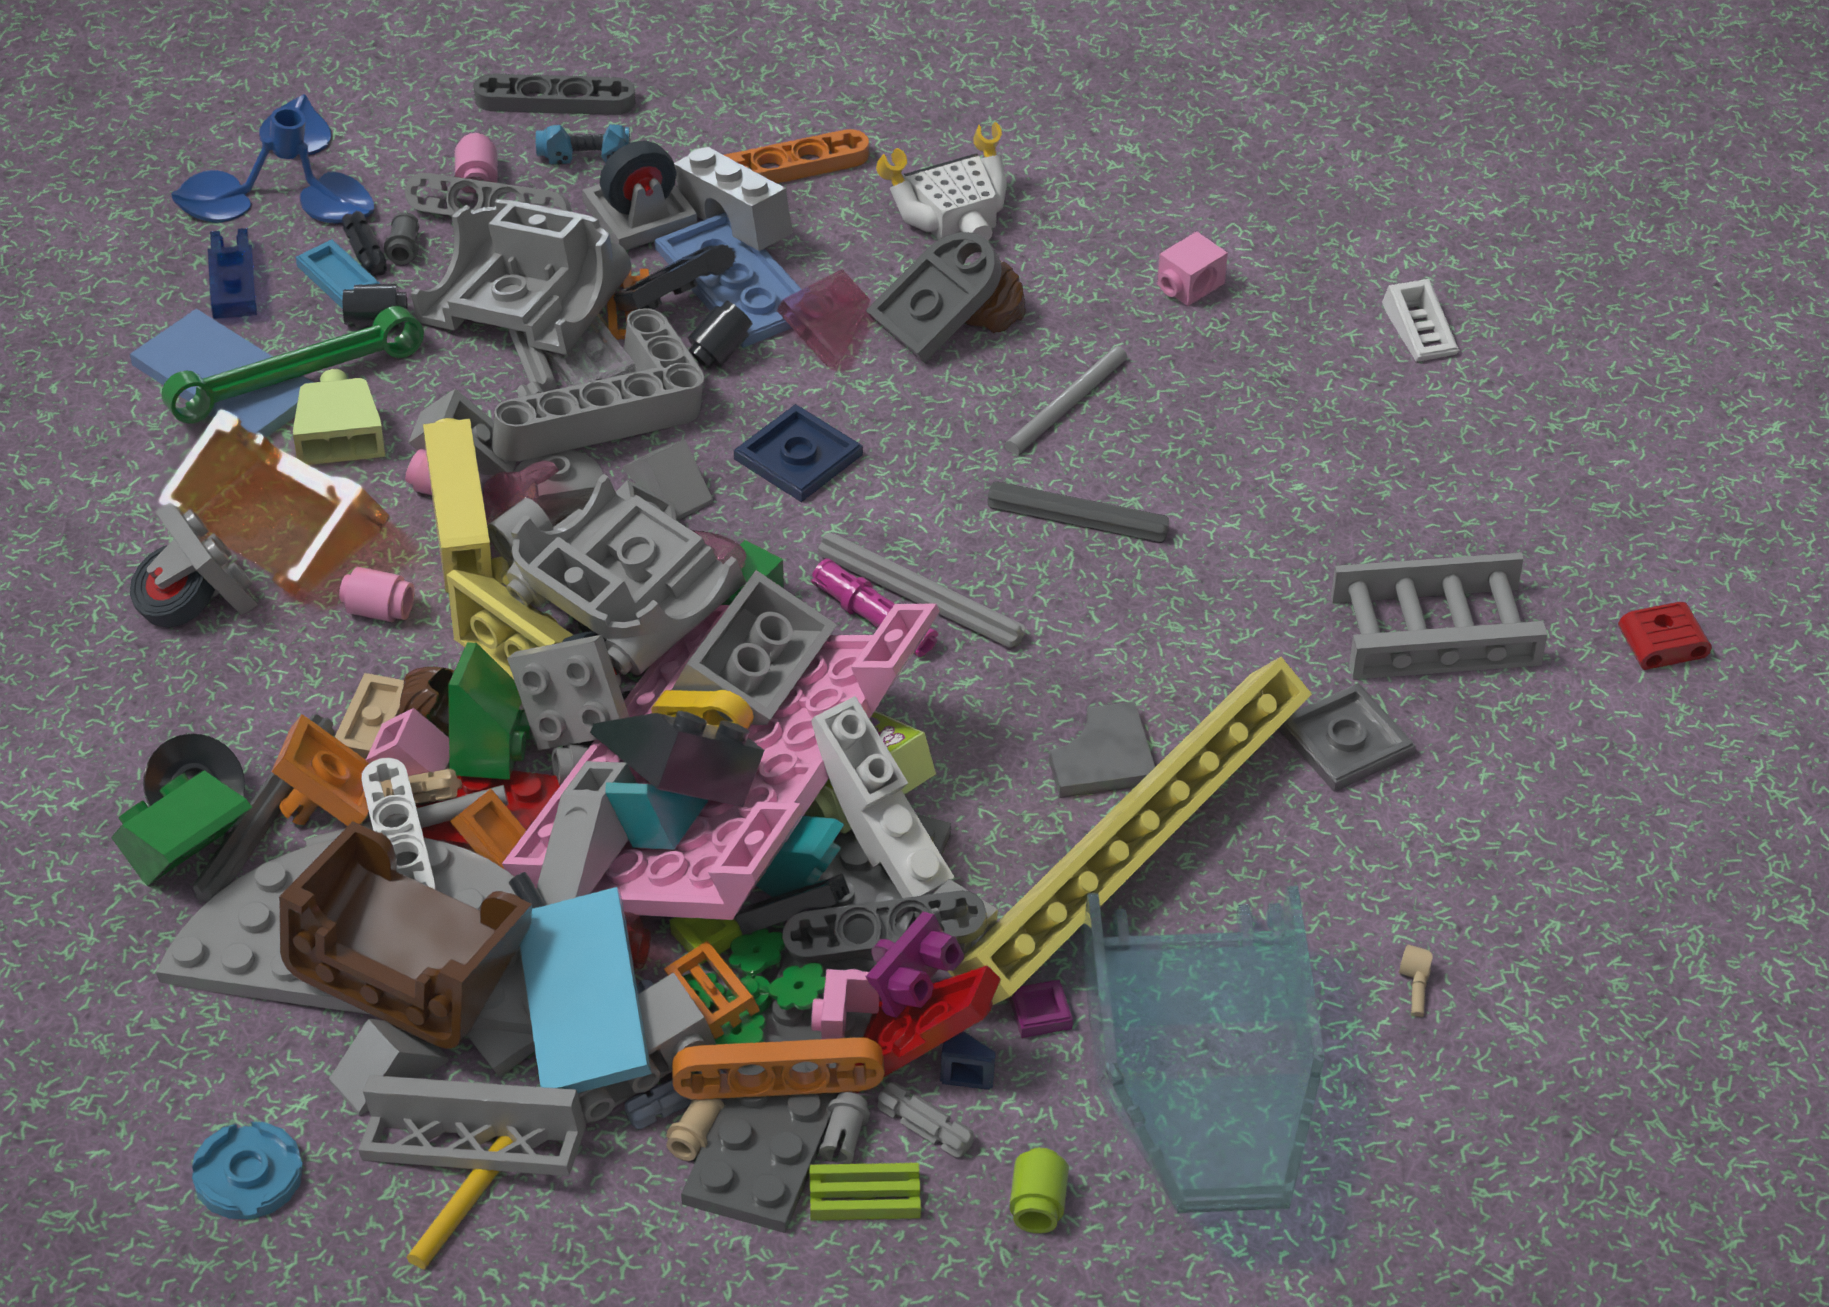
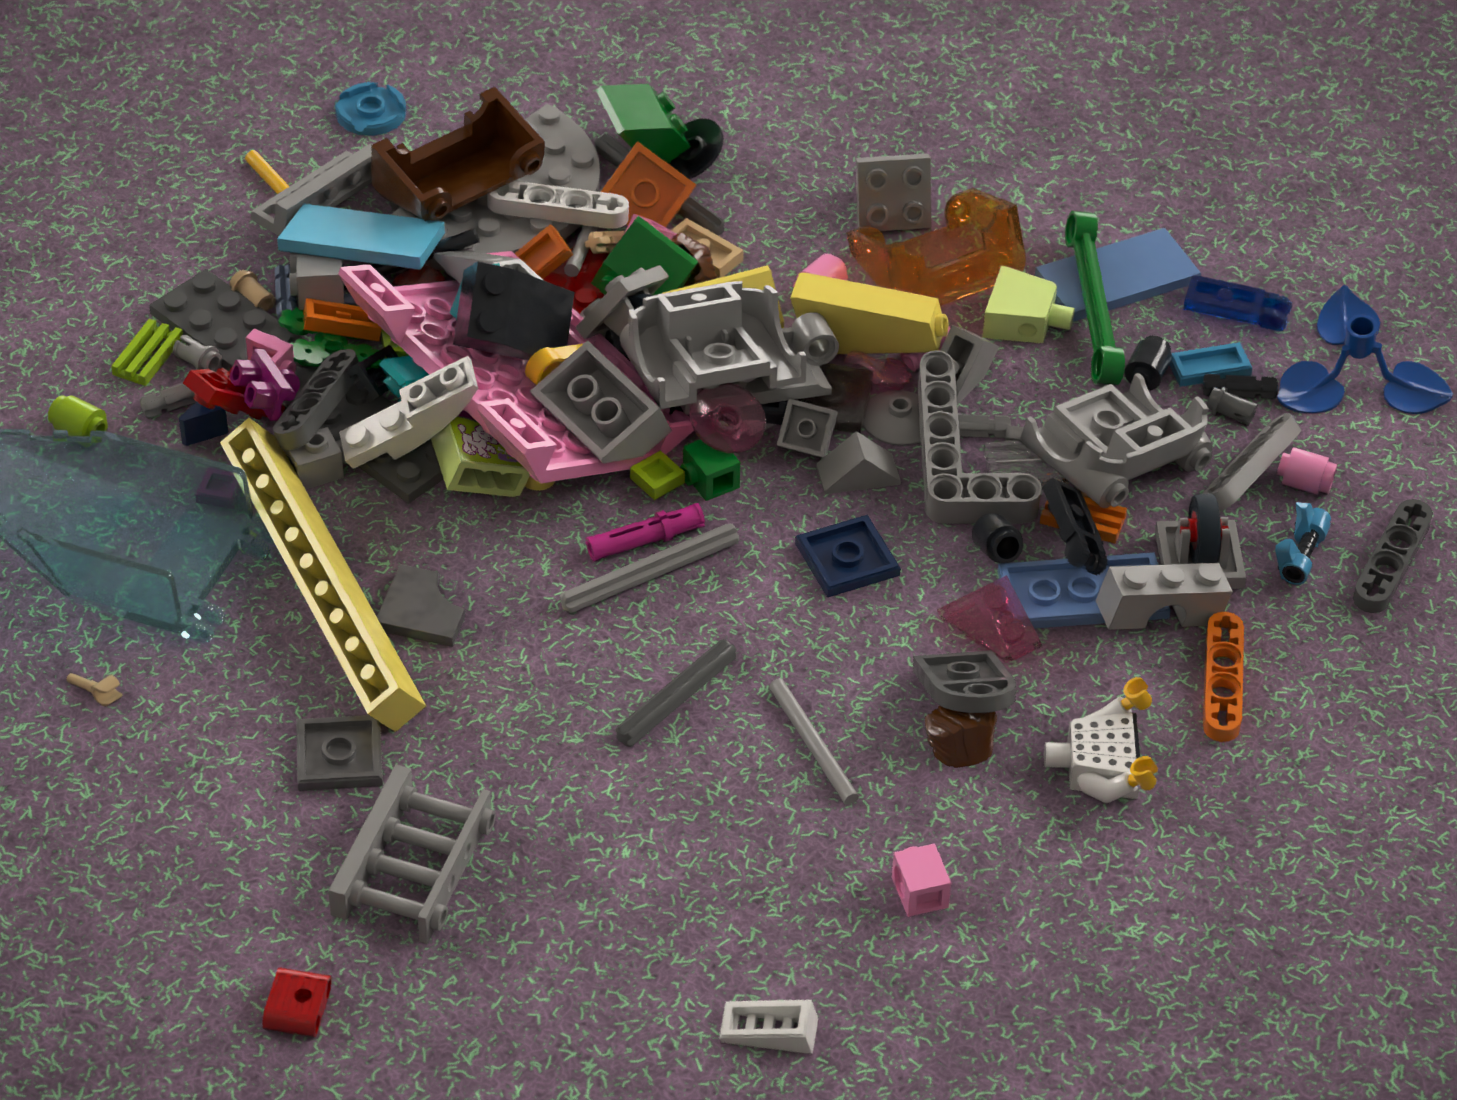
camera: 115 degrees right, 0 degrees up
(778, 1075) = (246, 315): orange beam -> none

